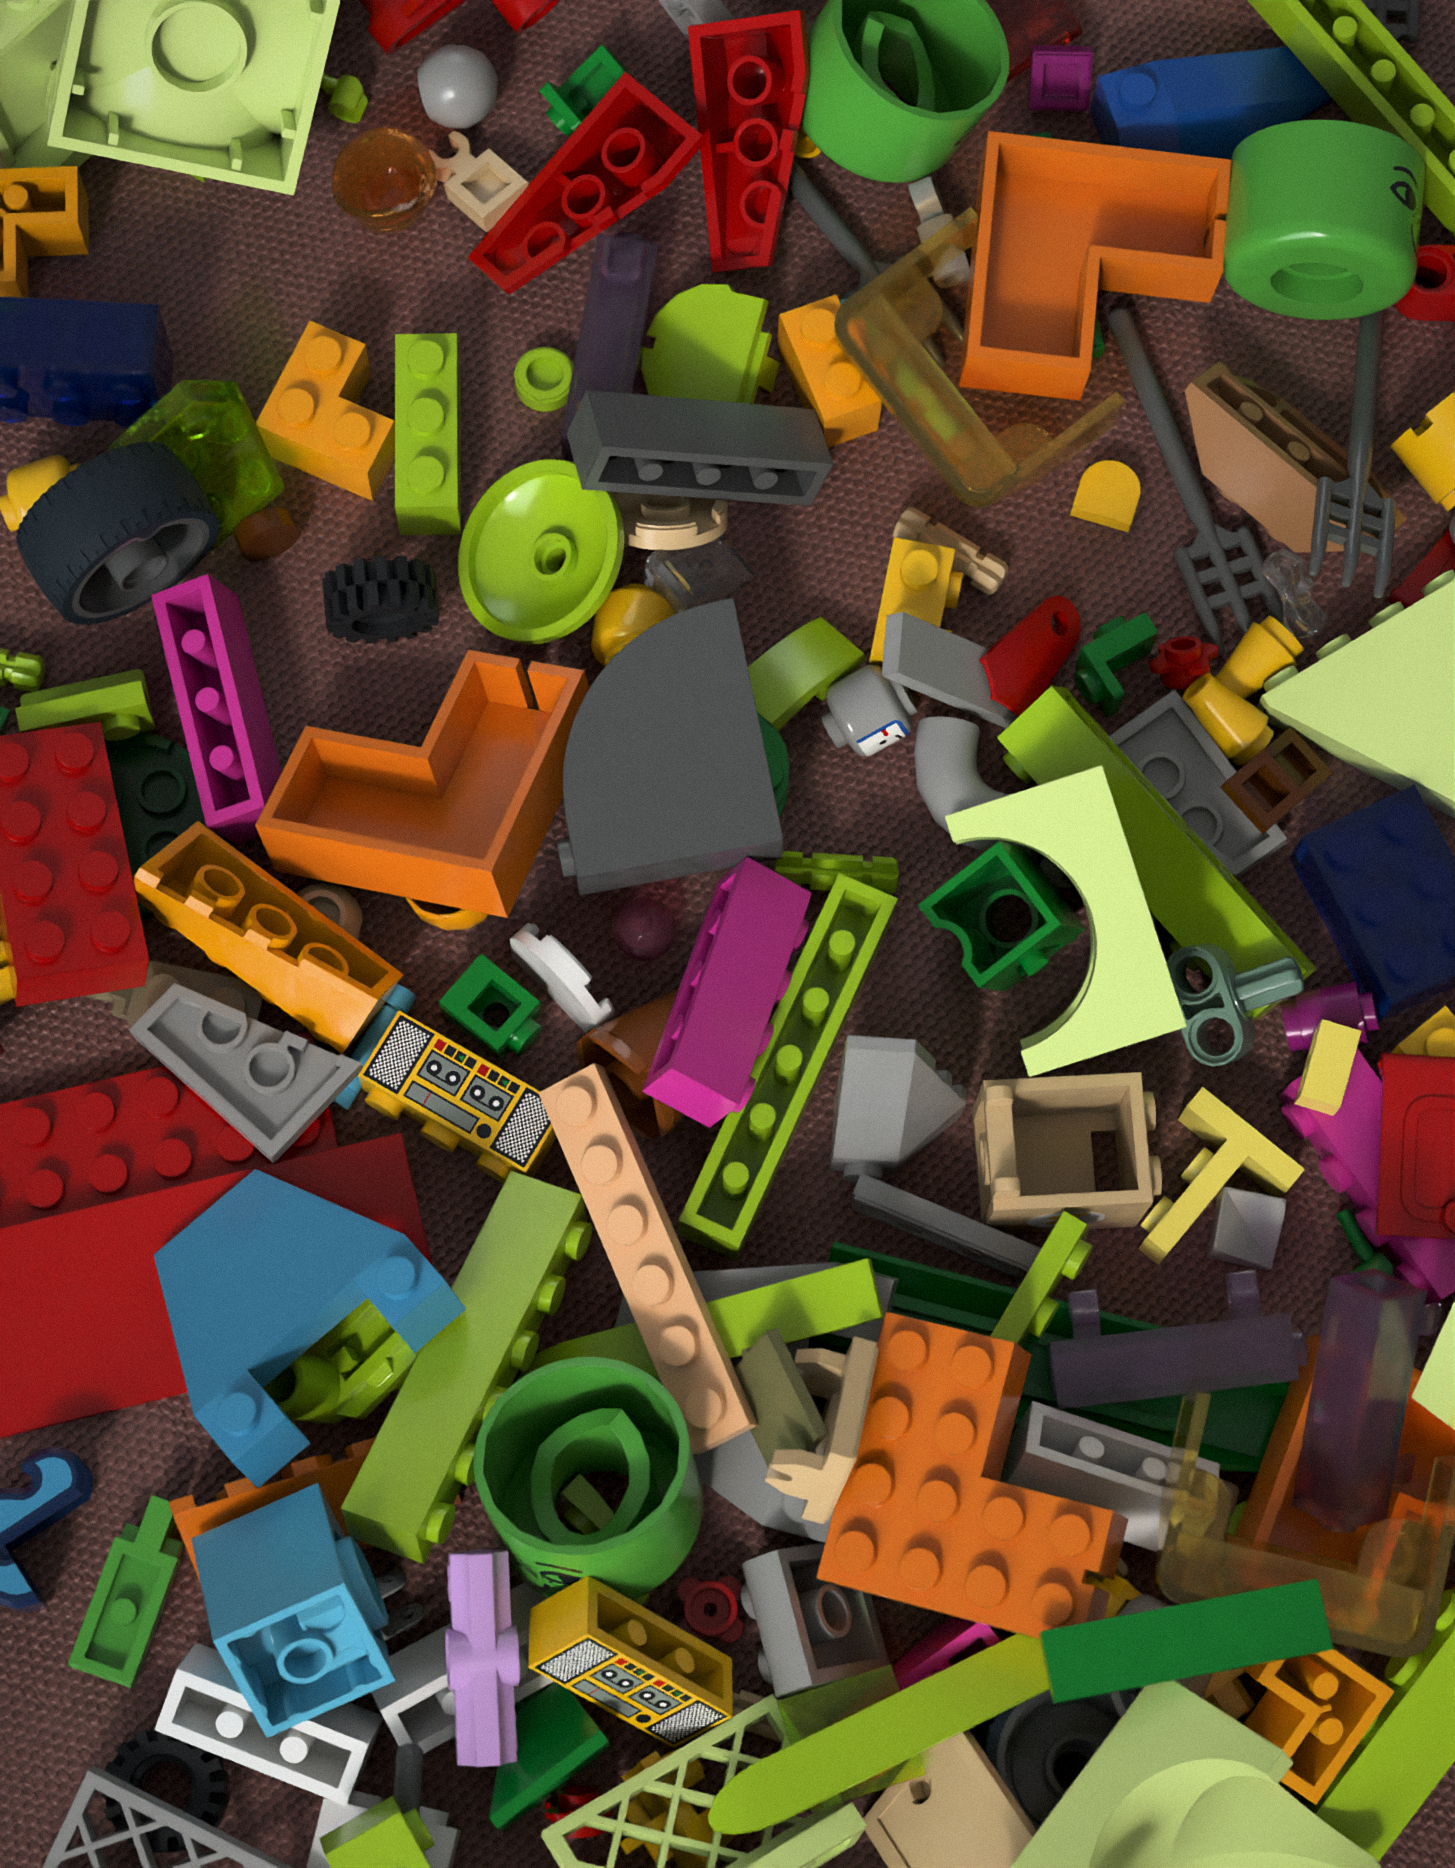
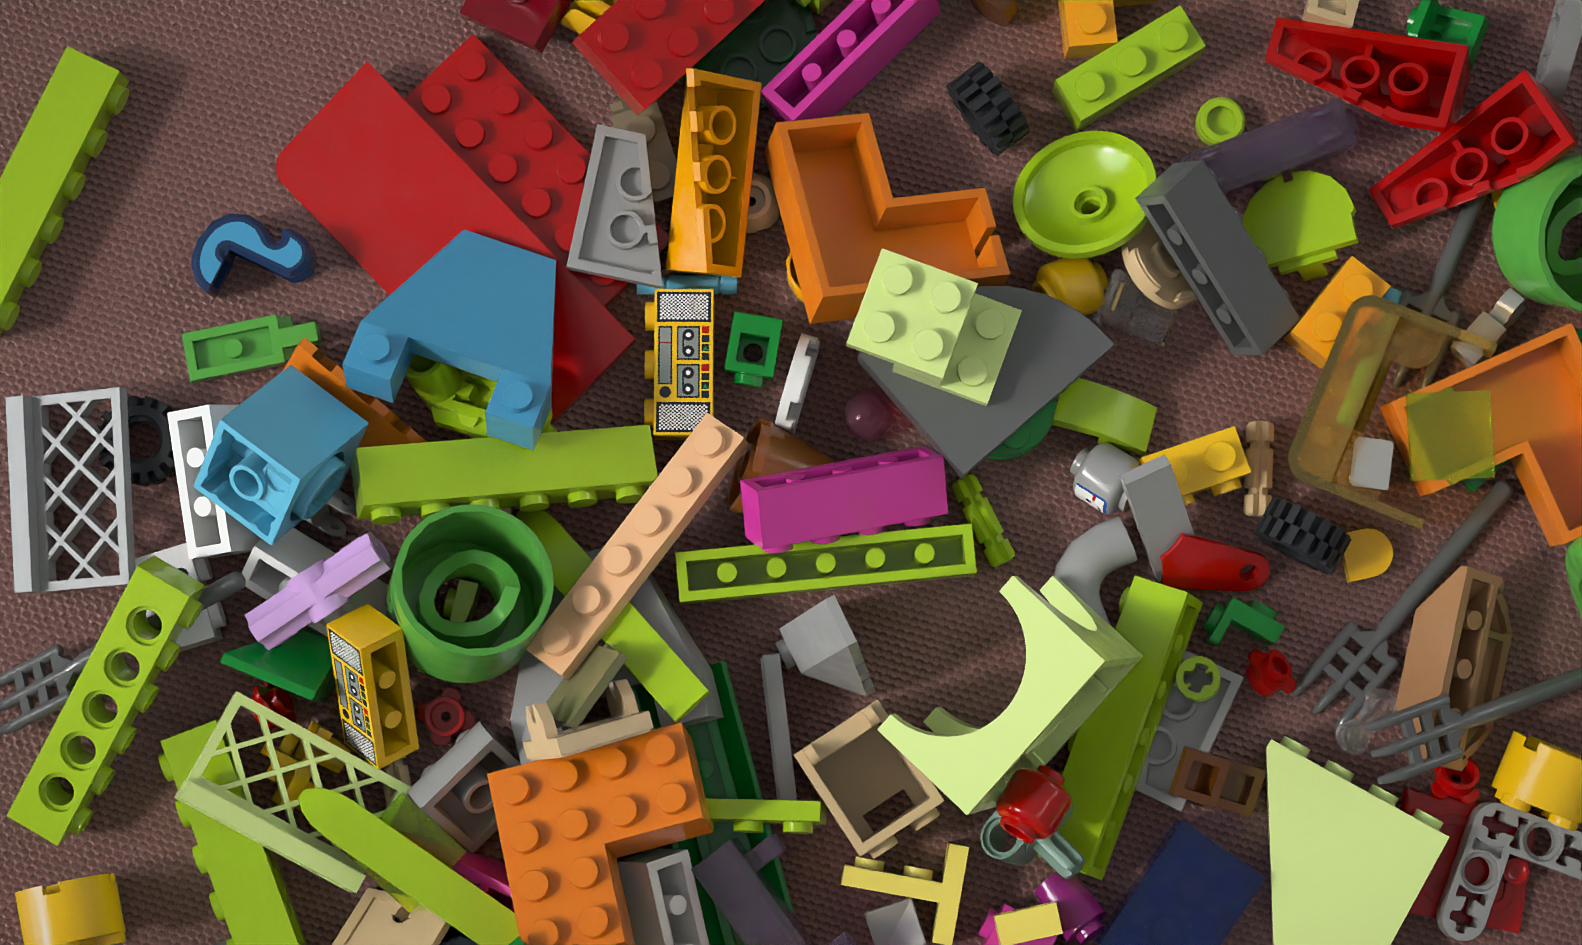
camera: 65 degrees right, 10 degrees up
(600, 767) = (933, 327): none -> yellowish green bracket
(967, 909) = (979, 650): green piece -> none
(1019, 422) = (1371, 464): none -> light grey slope
(1039, 316) = (1450, 435): none -> clear neon green piece
(1055, 538) = (1302, 536): none -> black tyre
(1131, 737) = (1189, 667): none -> lime bush
(1205, 970) = (1033, 804): none -> red head
(1230, 720) = (1244, 725): yellow cone -> none
(1258, 657) = (1300, 721): yellow cone -> none
(1416, 538) = (1464, 789): none -> red plate

